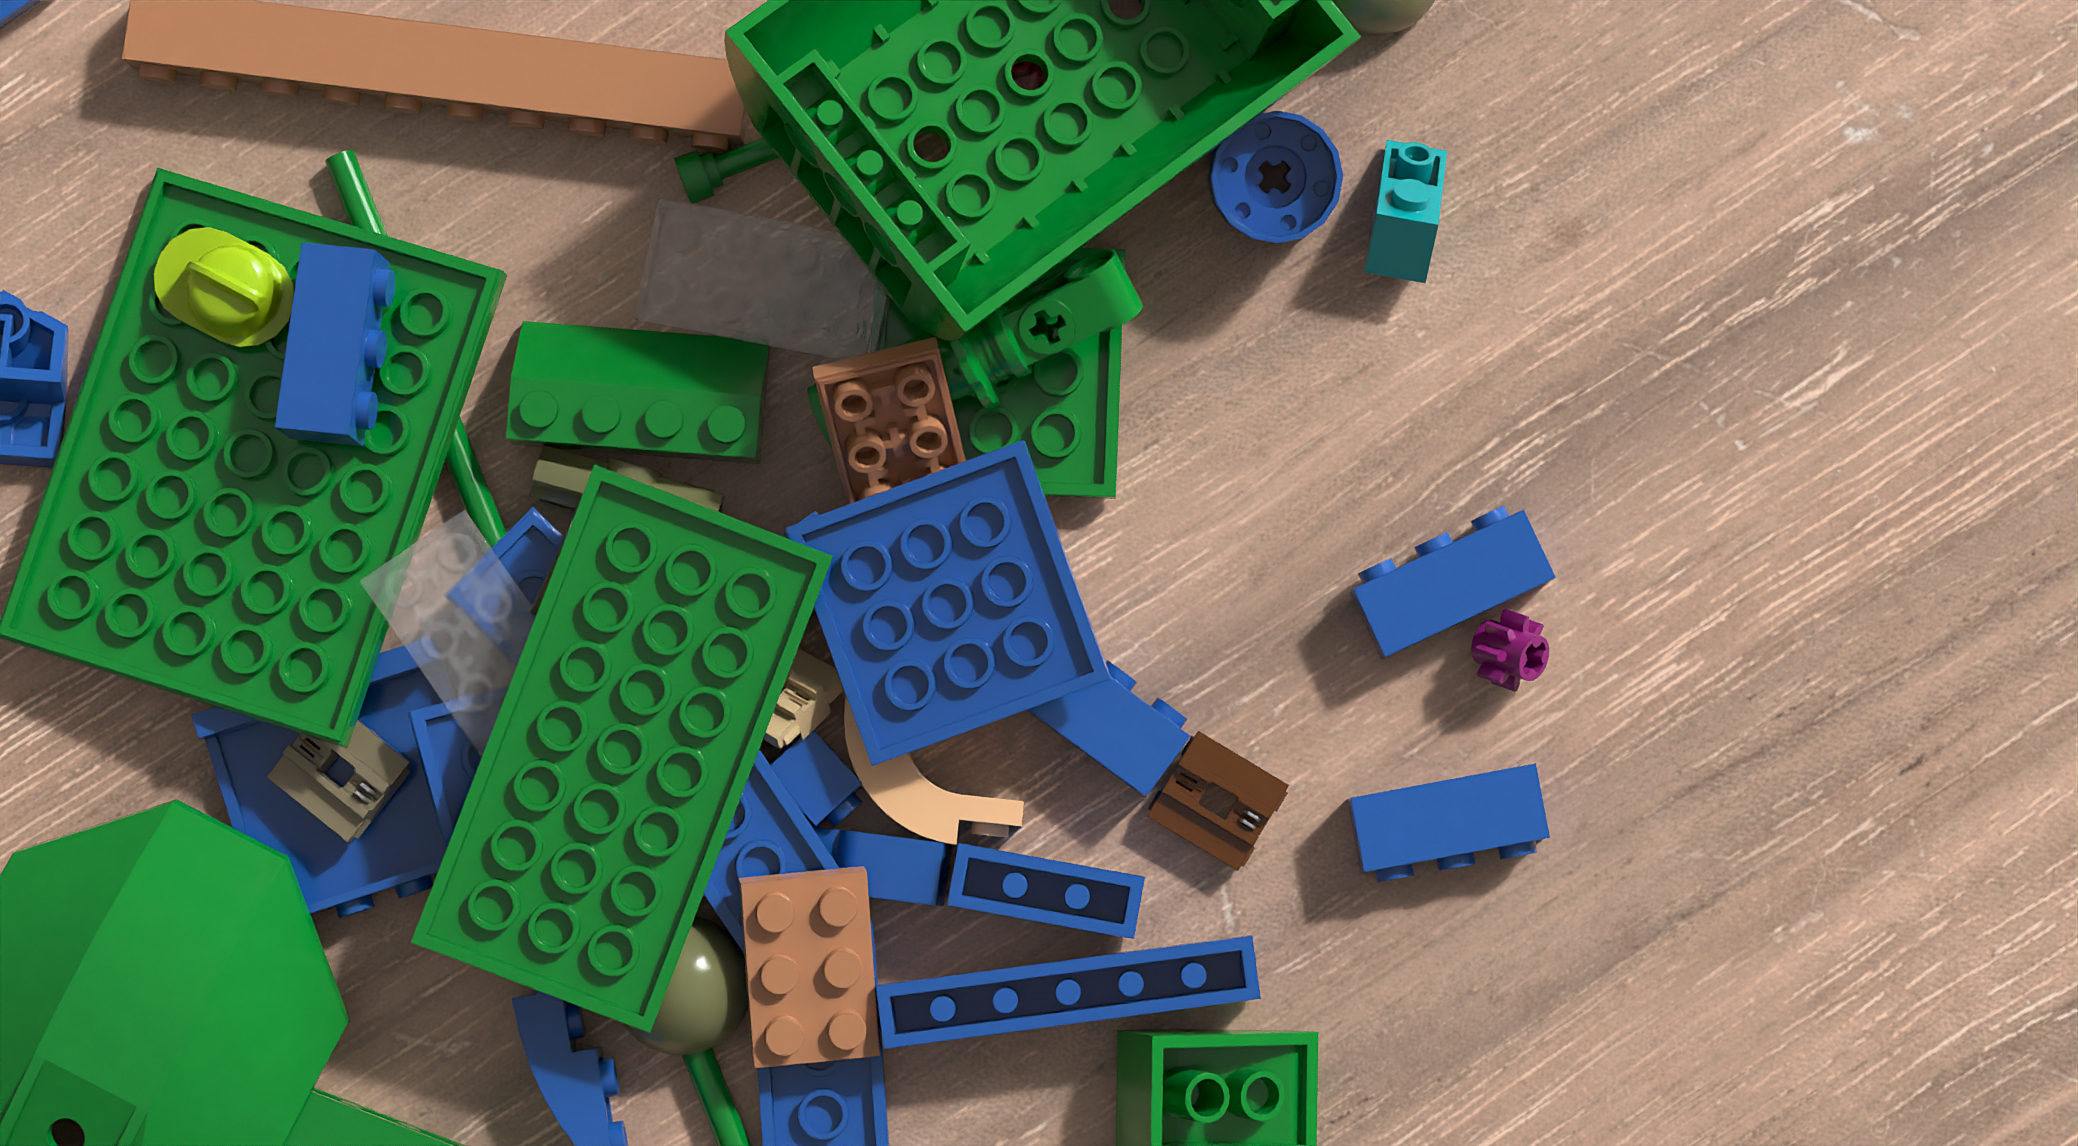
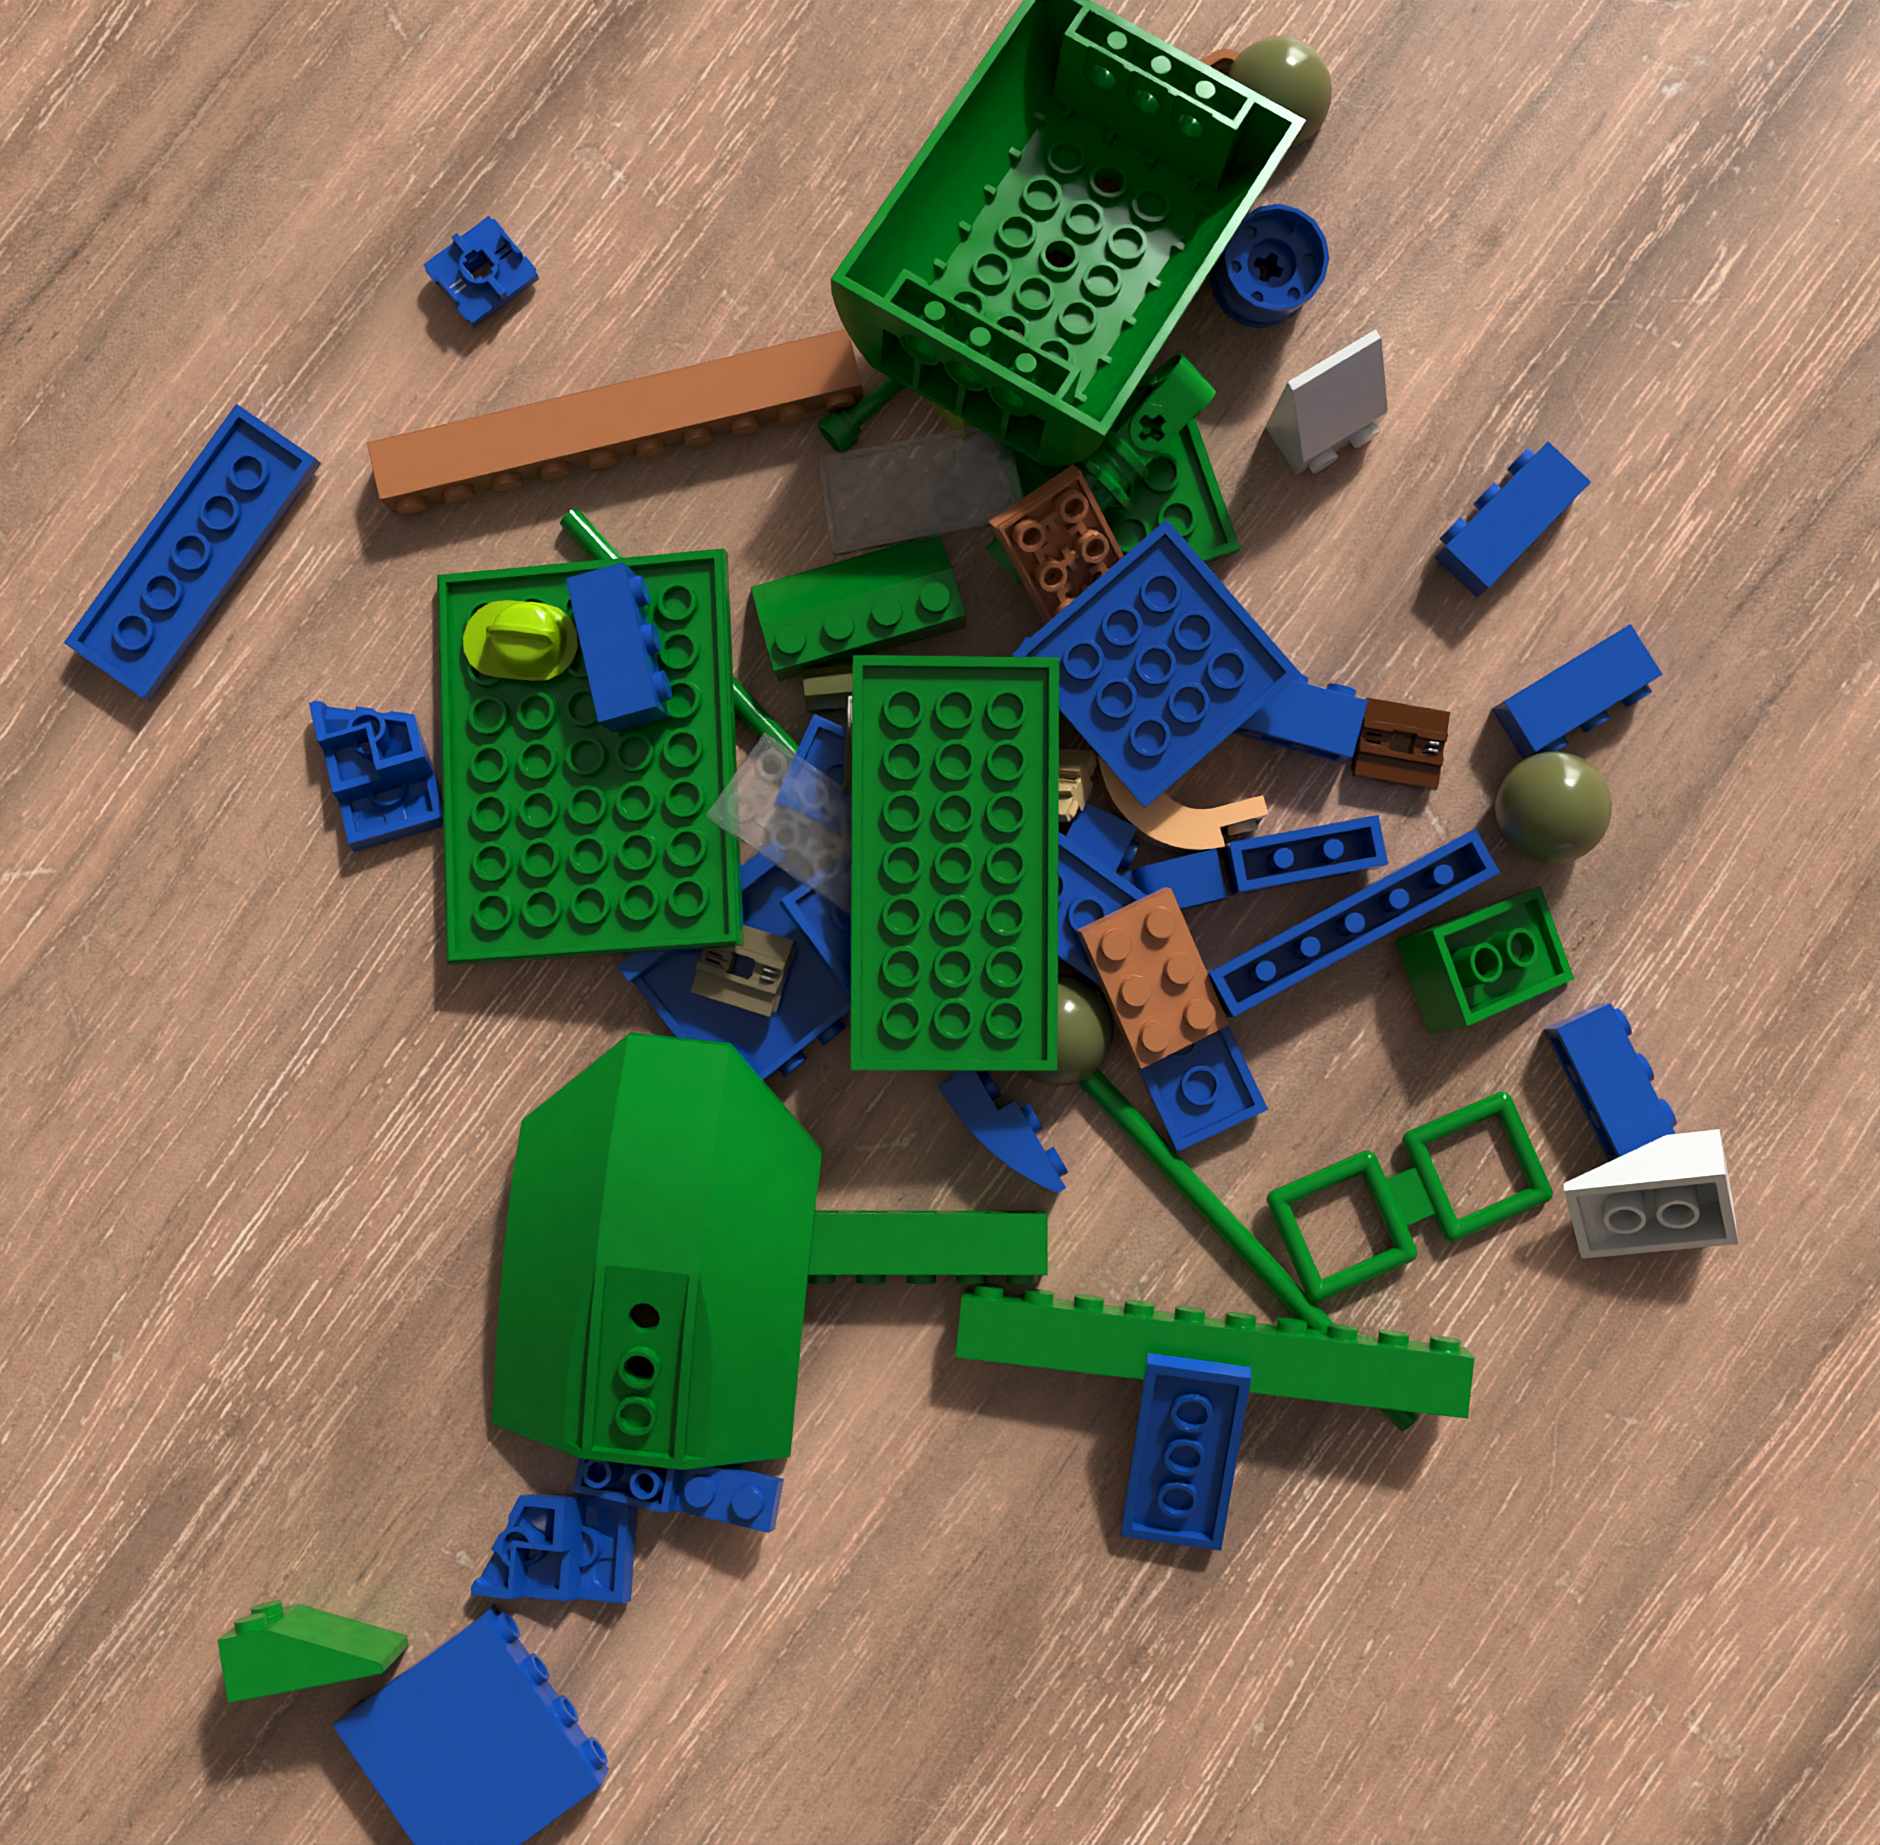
camera: 20 degrees left, 0 degrees up
(1280, 376) = (1331, 406): none -> white slope
(1359, 945) = (1553, 807): none -> olive piece
(1406, 211) = (1372, 261): teal slope -> none
(1510, 650) = (1574, 550): magenta gear -> none

